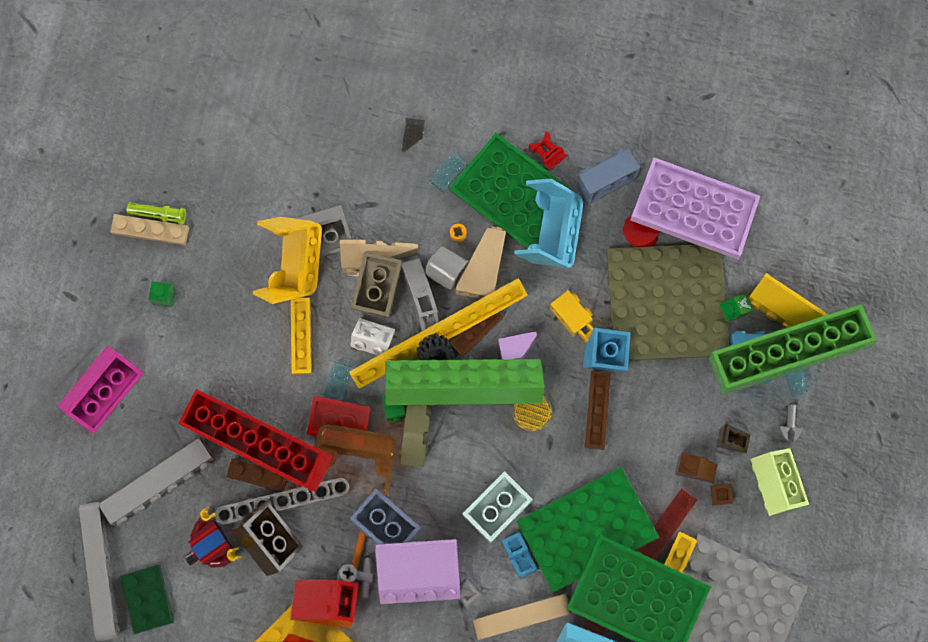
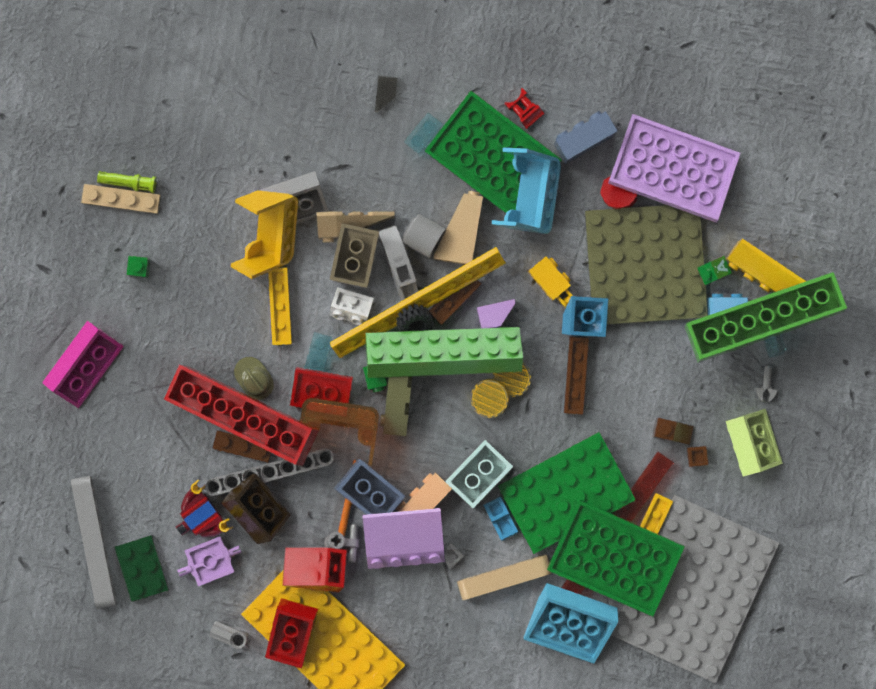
camera: 10 degrees left, 10 degrees up
(156, 482) = (144, 455): light grey brick -> none
(217, 593) = (209, 561): none -> lavender plate
(272, 407) = (253, 378): none -> olive piece
(446, 527) = (428, 495): none -> light nougat brick
(463, 230) = (440, 195): light orange bush -> none
(509, 431) = (489, 398): none -> tile
(733, 439) = (709, 402): dark brown slope -> none

